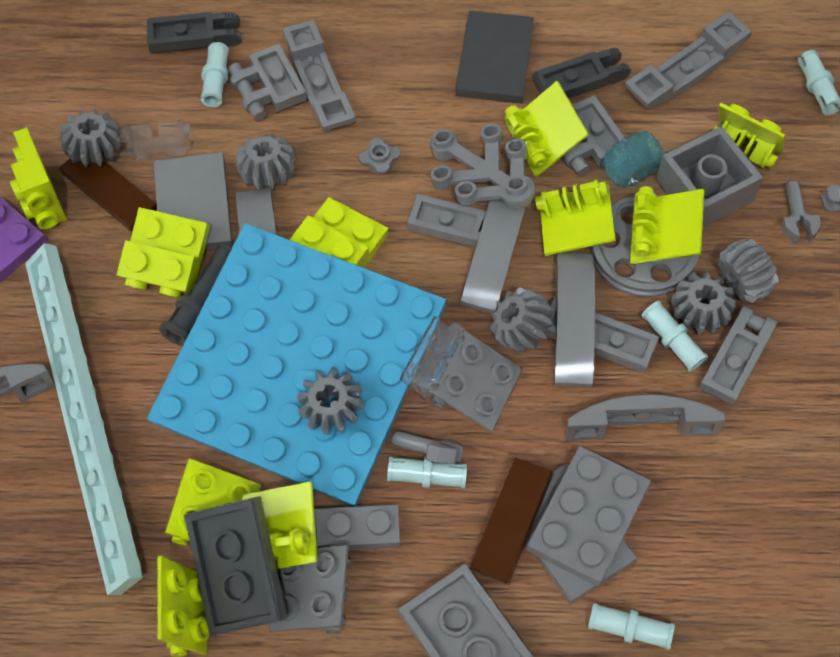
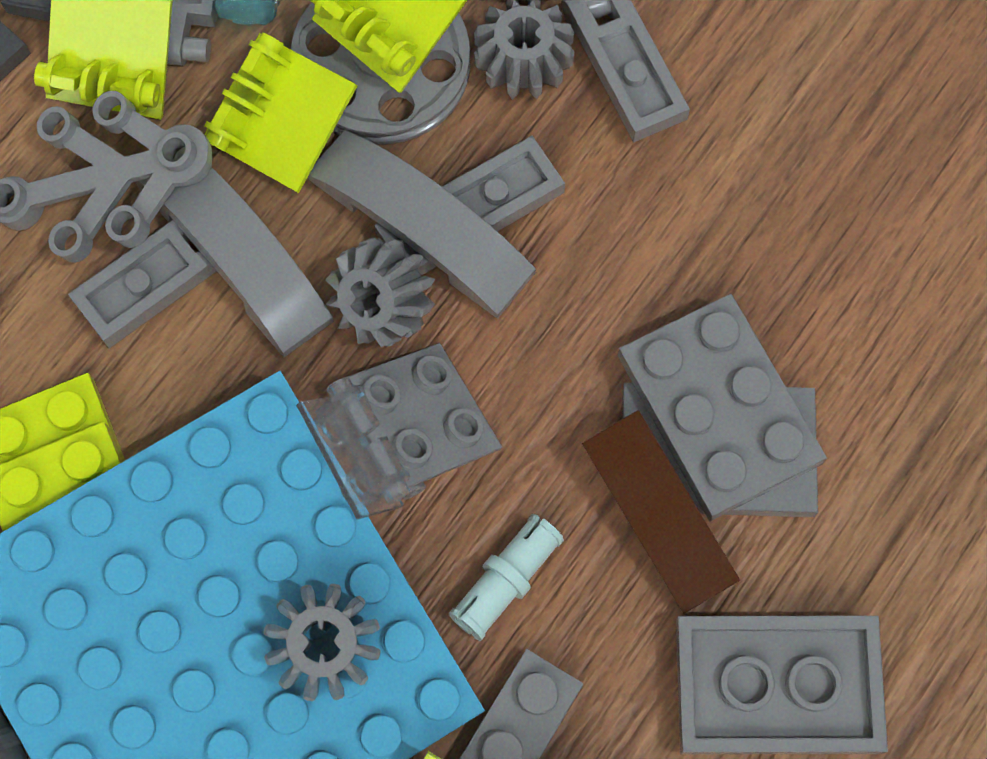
camera: 55 degrees left, 10 degrees up
(438, 451) = (494, 535): light grey bar -> none
(631, 626) = (900, 460): light aqua pin -> none
(674, 336) = (542, 116): light aqua pin -> none
(691, 416) = (666, 183): light grey slope -> none

